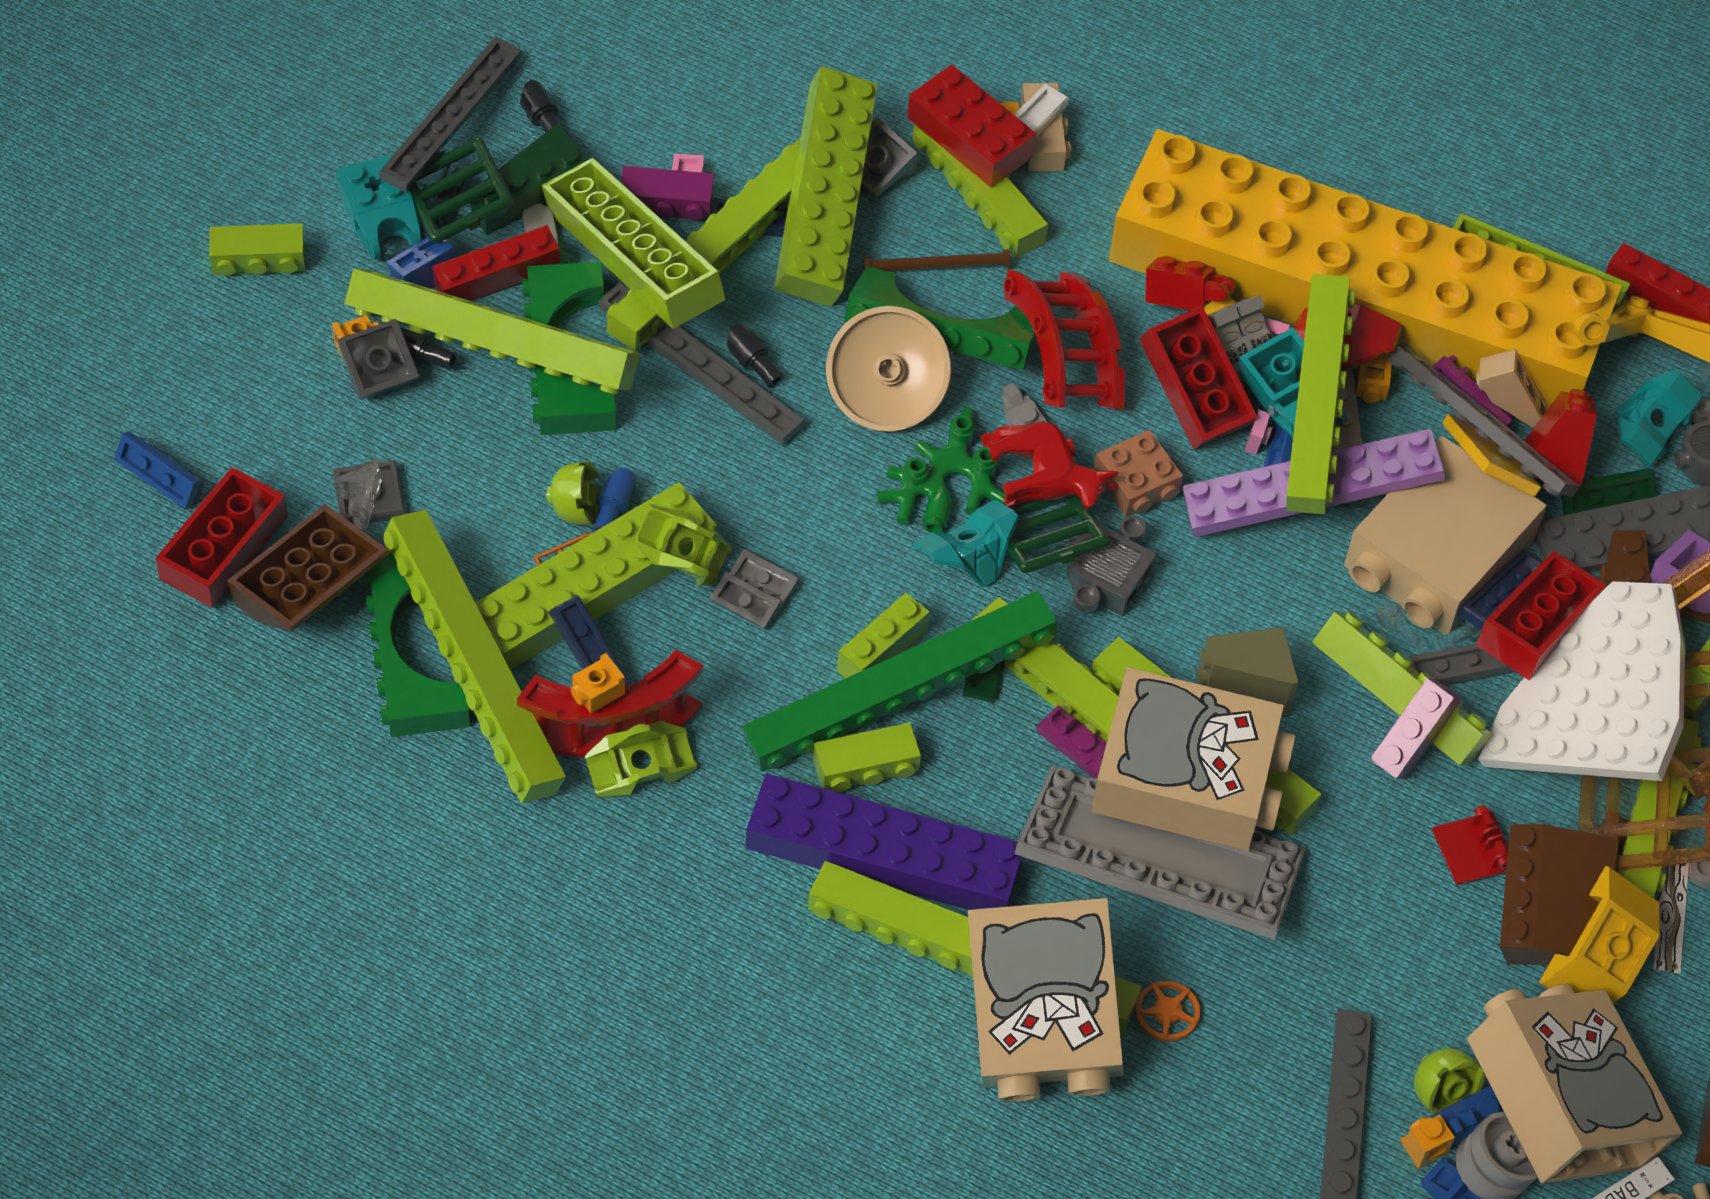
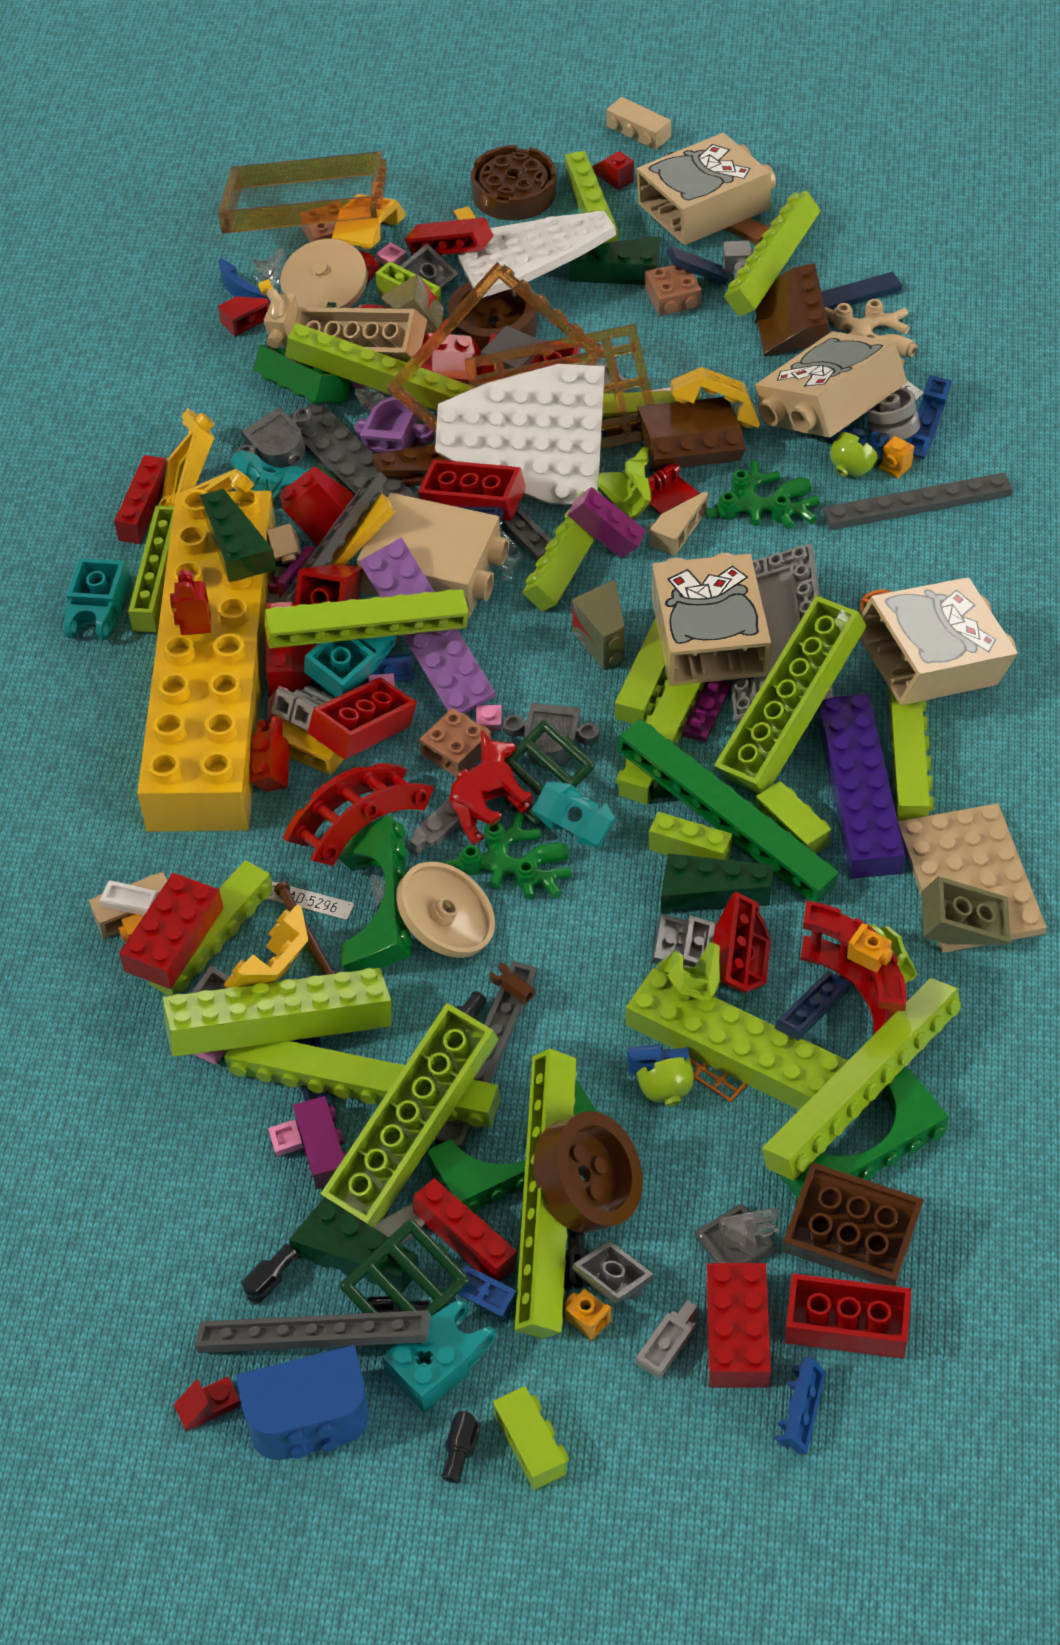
camera: 105 degrees left, 5 degrees down
(271, 448) = (737, 1325): none -> red brick
(282, 198) = (460, 1444): none -> black arm
(291, 392) = (667, 1340): none -> light grey hinge
(381, 86) = (305, 1404): none -> blue brick
(438, 39) = (203, 1404): none -> red slope
(459, 373) = (606, 1163): none -> reddish brown brick
(632, 855) = (964, 914): none -> olive slope
(702, 911) = (976, 851): none -> tan plate
(704, 627) = (742, 944): none -> red wedge
(766, 401) = (513, 984): none -> reddish brown bar
(817, 631) = (710, 882): none -> dark green wedge
(921, 227) = (287, 942): none -> yellow slope
(983, 286) = (317, 902): none -> white sticker
(1024, 791) = (790, 695): none -> lime brick
(1168, 525) = (489, 716): none -> bright pink plate
(1381, 211) = (191, 605): none -> red hinge
(1399, 825) = (677, 524): none -> tan slope
(1400, 962) = (779, 503): none -> green plant
(1404, 398) = (328, 584): none -> red slope
(1493, 290) = (236, 539): none -> dark green wedge
(1498, 789) = (620, 487): none -> lime piece
(1511, 201) = (96, 596): none -> teal brick

